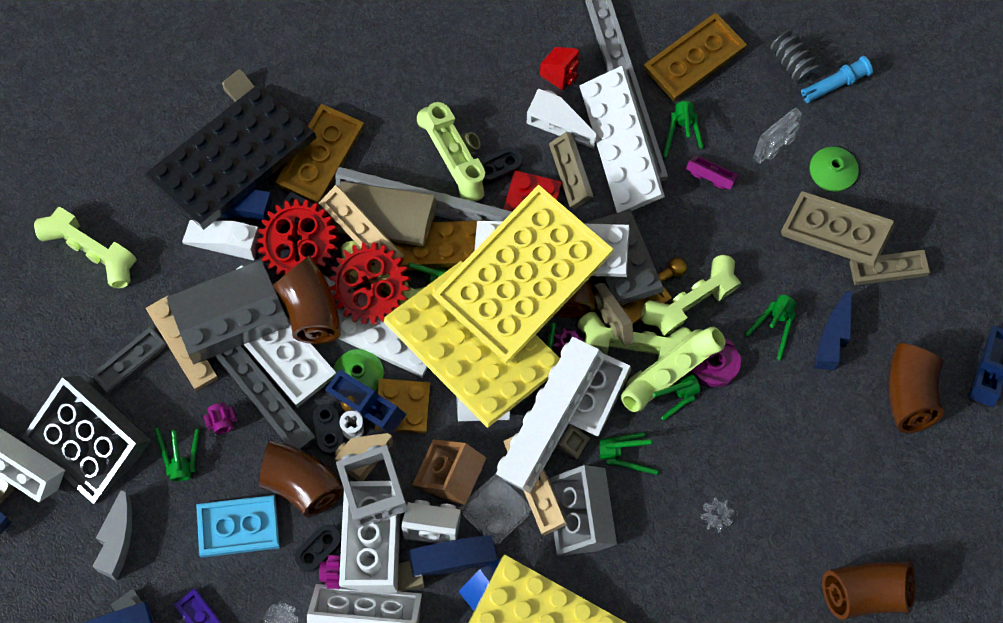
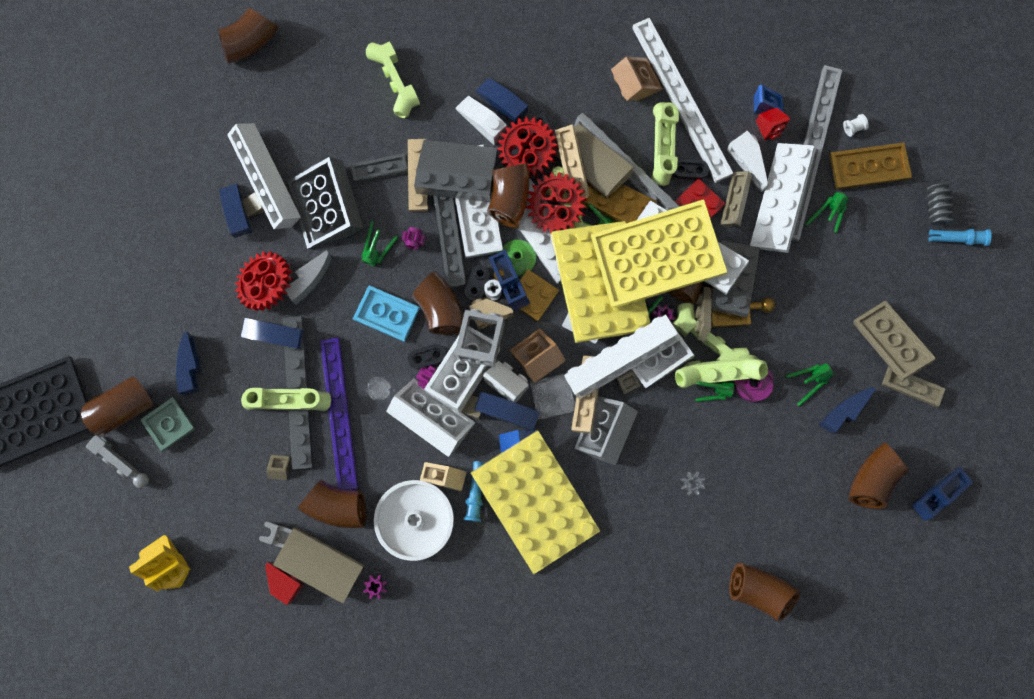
camera: 35 degrees right, 10 degrees up
(55, 570) = (263, 281): none -> red gear
(230, 156) = (517, 67): black plate -> none
(237, 85) = (550, 22): dark tan slope -> none
(315, 167) = (576, 96): pearl gold plate -> none
(377, 98) = (636, 78): none -> medium nougat slope
(439, 90) = (682, 99): none -> white plate
(471, 141) = (680, 142): olive plate -> none
(538, 45) = (767, 99): none -> blue slope
(611, 448) = (650, 400): green plant -> none
(652, 21) = (855, 125): none -> white bush
(671, 317) = (741, 337): yellowish green plate -> none
(706, 169) = (831, 252): magenta plate -> none
(778, 135) = (895, 253): clear plate -> none
(834, 178) = (912, 302): bright green dish -> none

